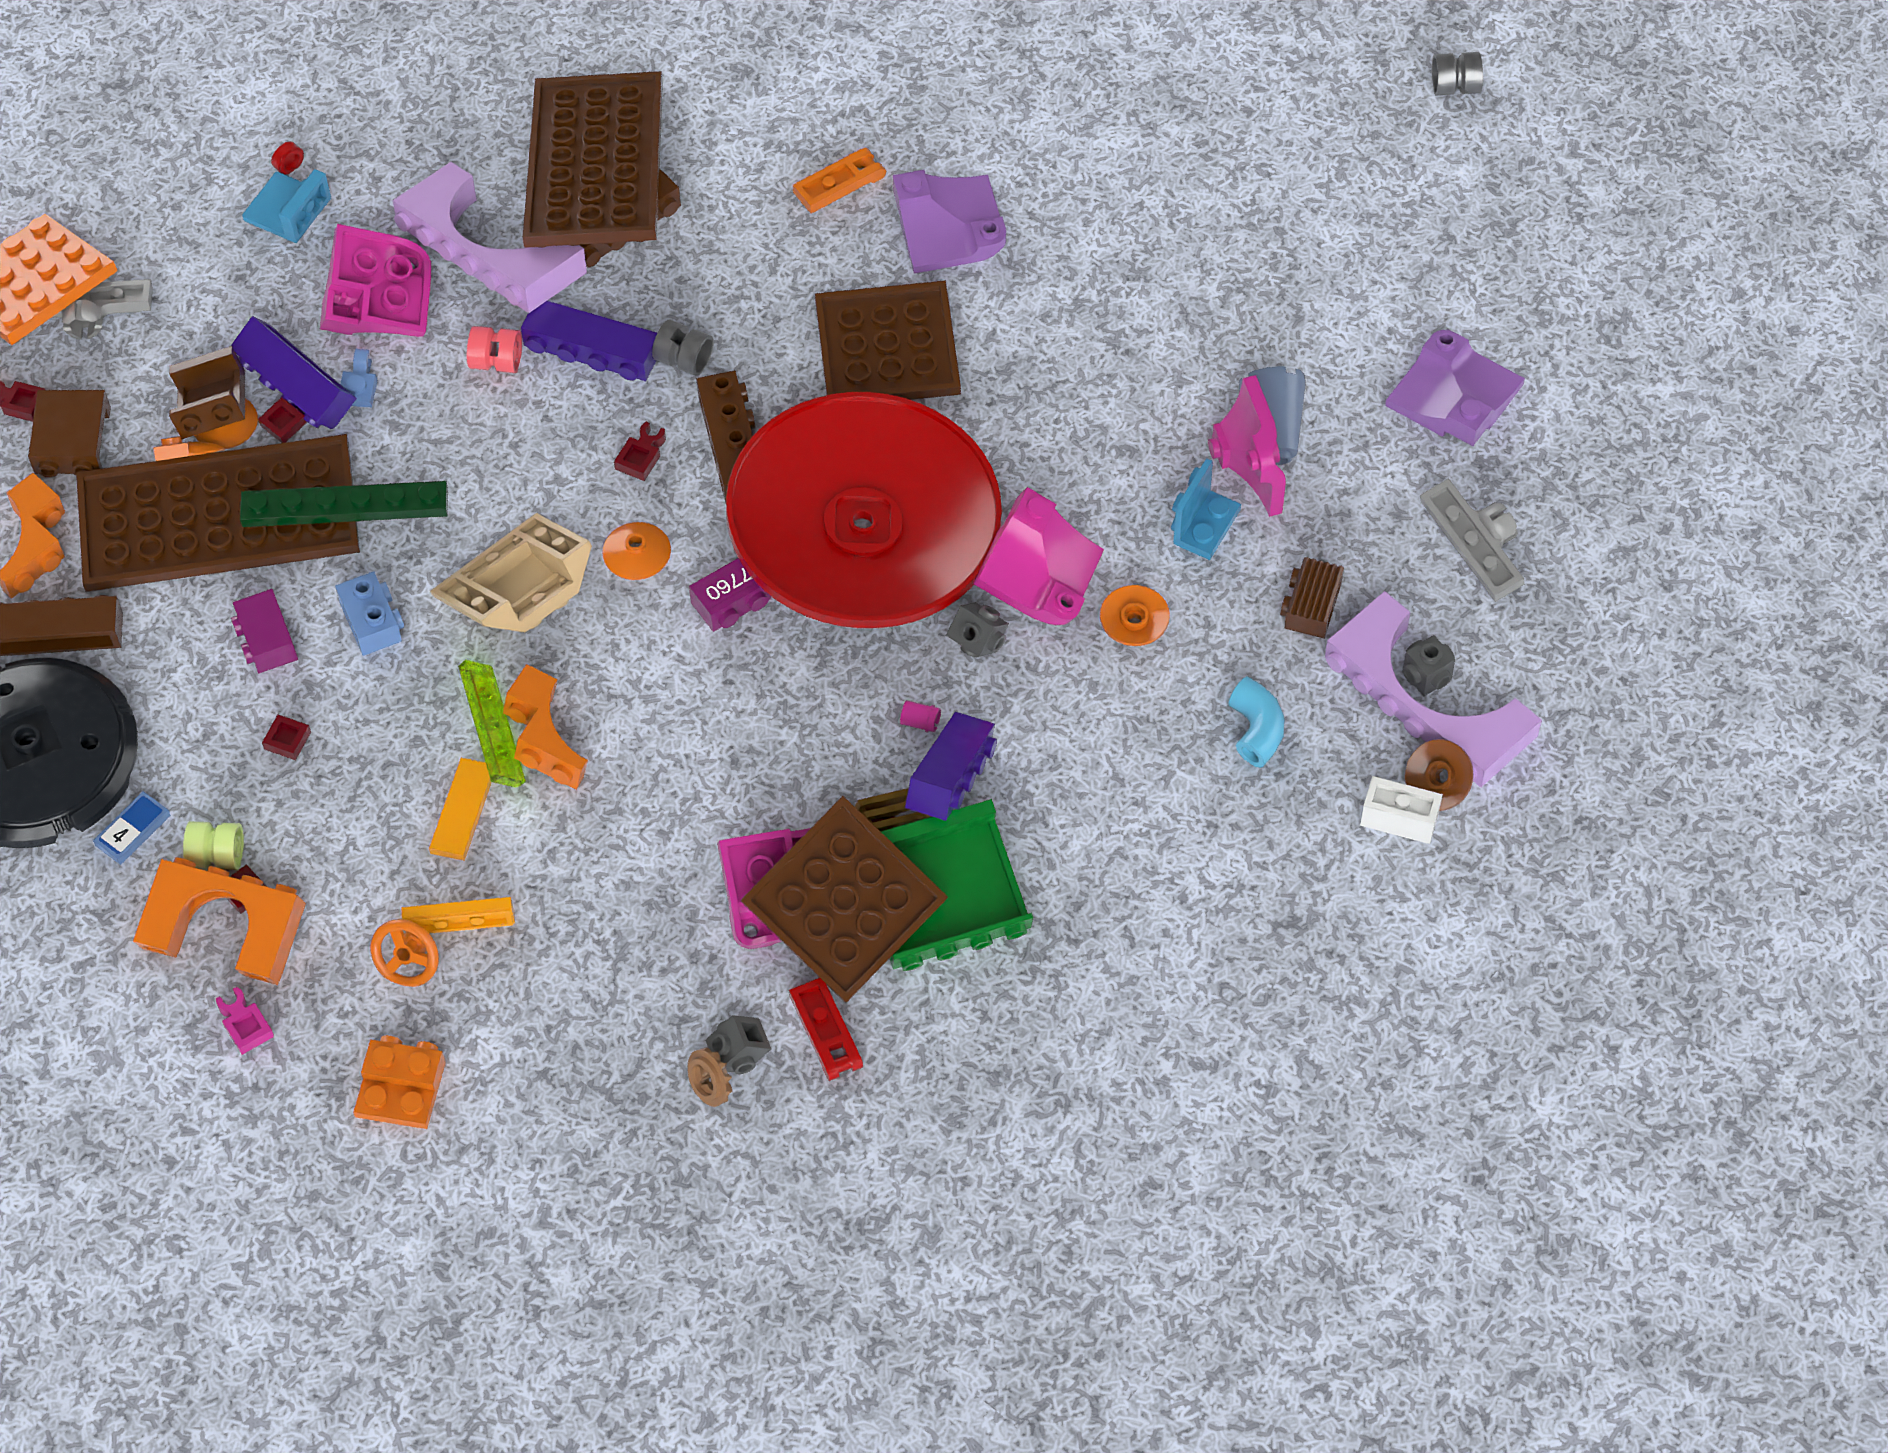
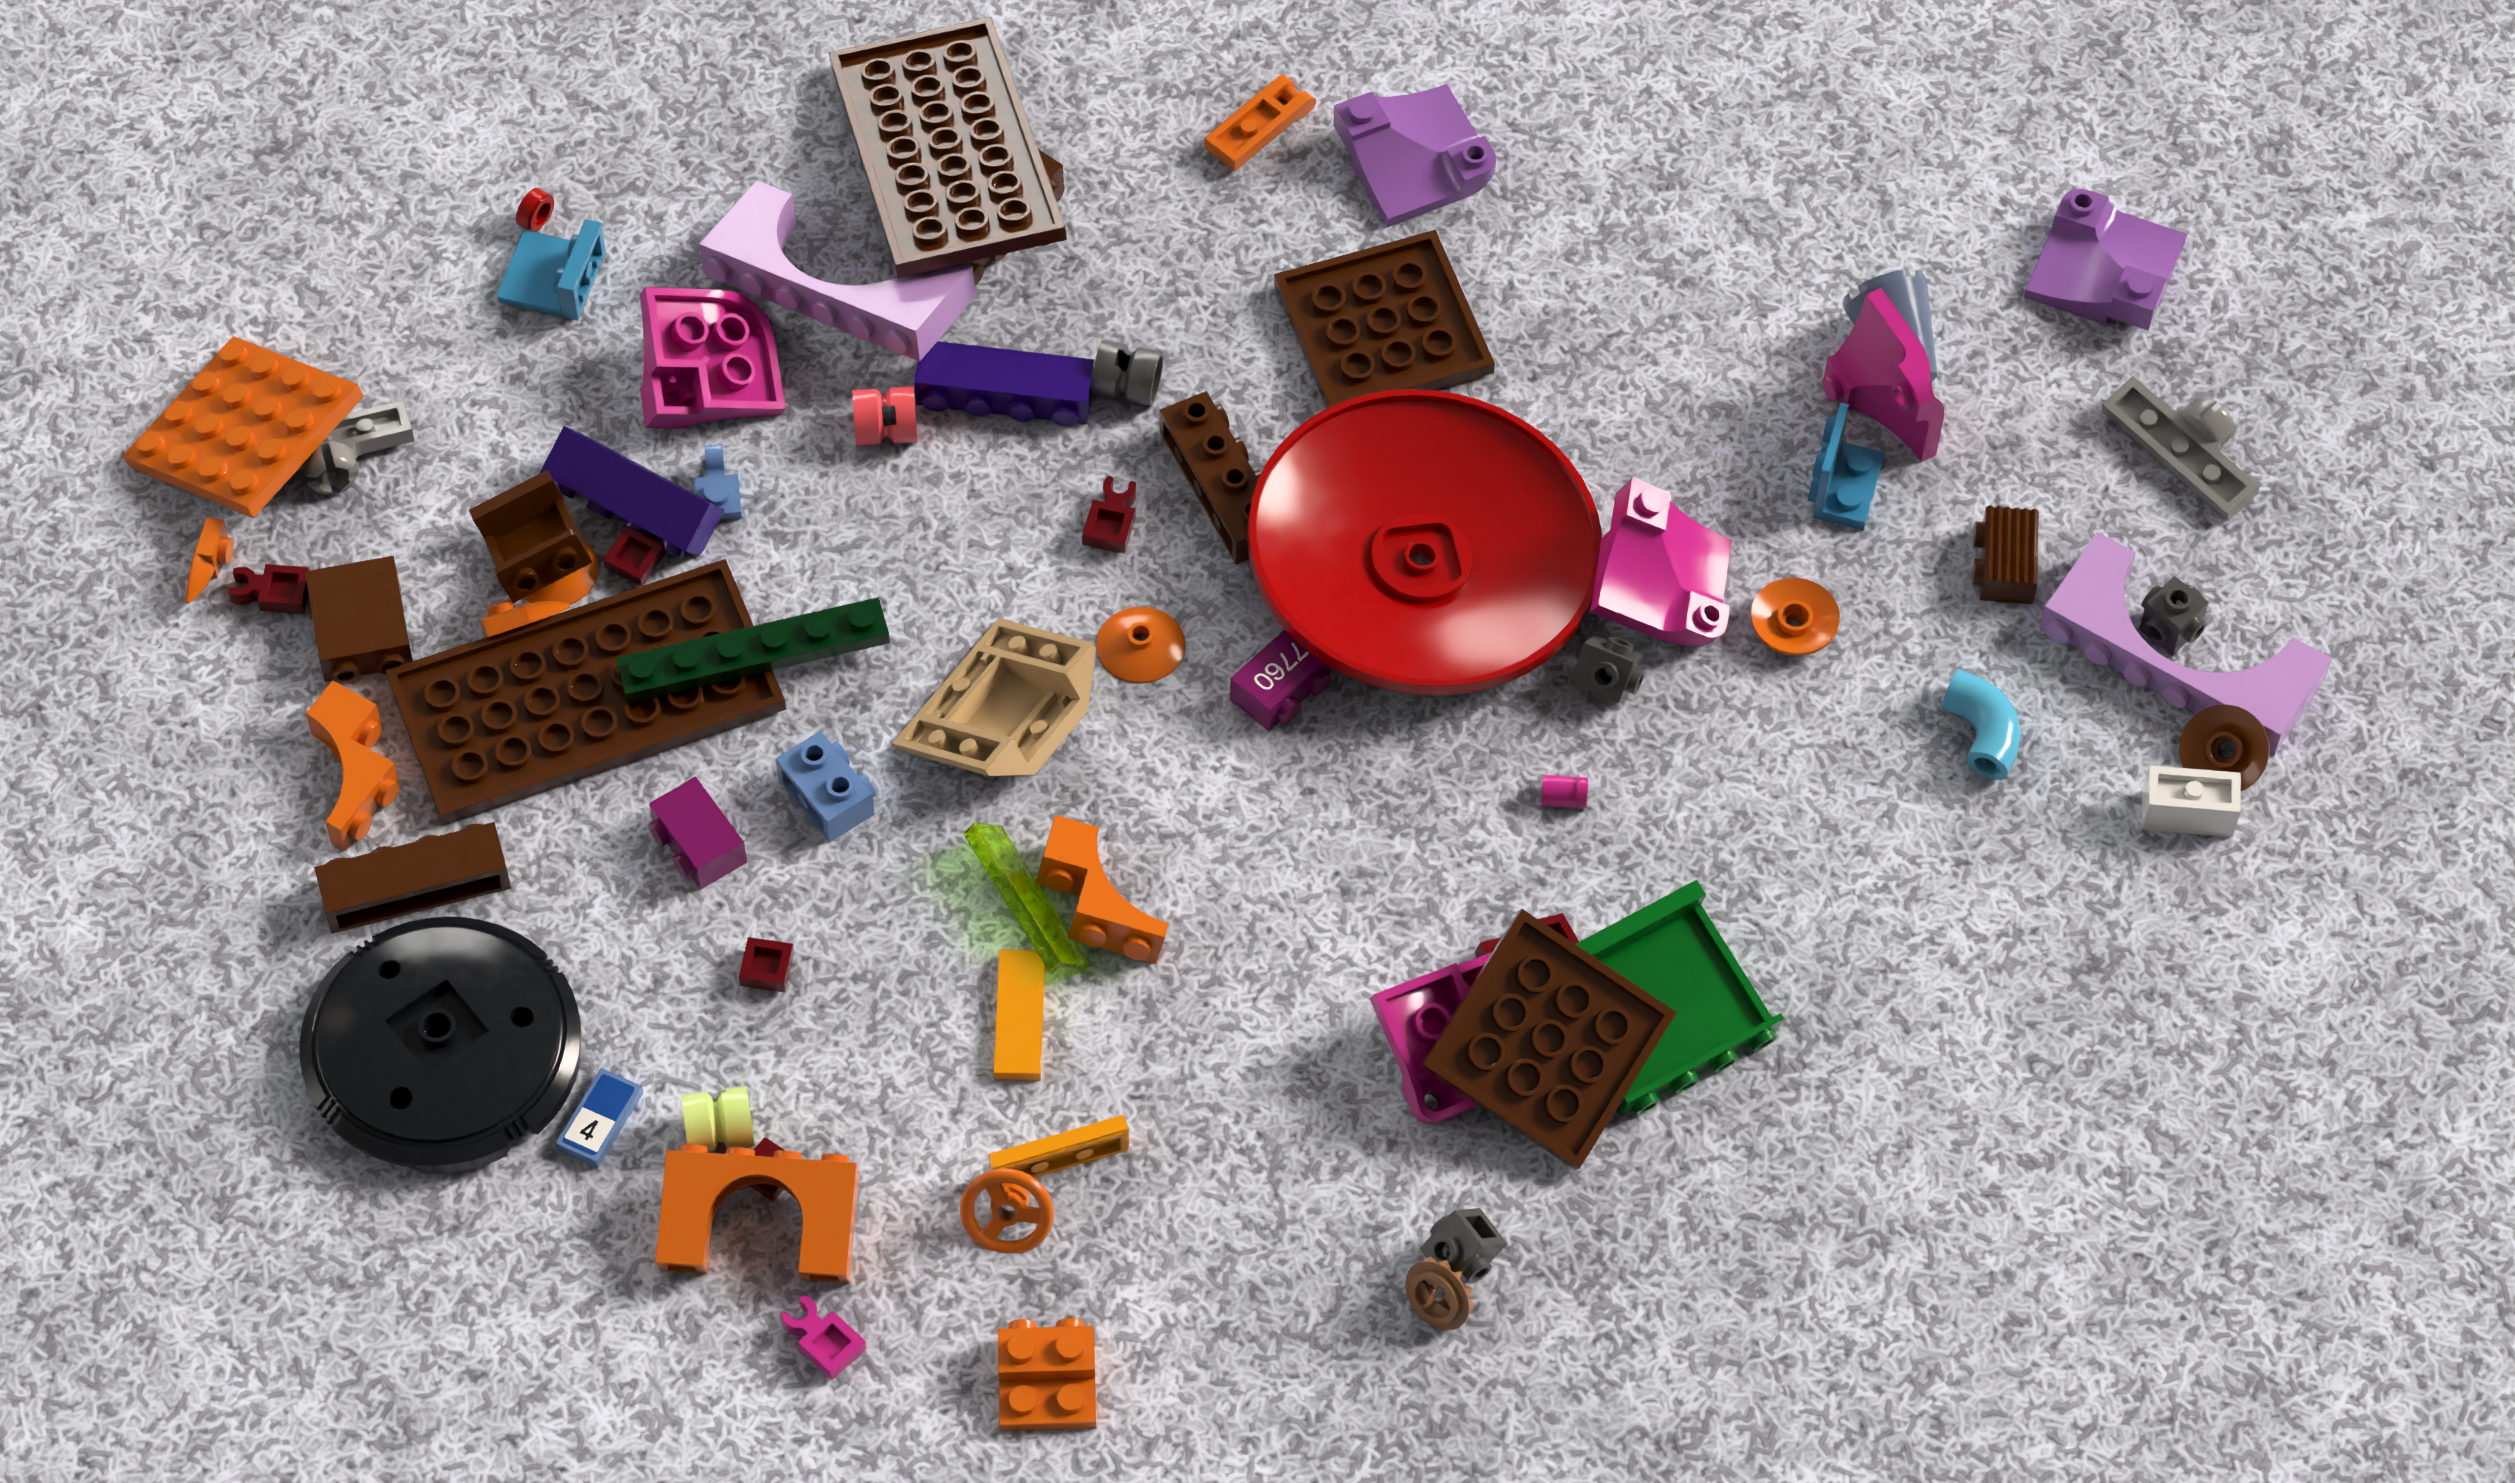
camera: 15 degrees left, 0 degrees up
(825, 1027) = (1562, 1205): red plate -> none
(888, 805) = (1569, 897): pearl gold tile -> none
(951, 766) = (1634, 848): dark purple brick -> none

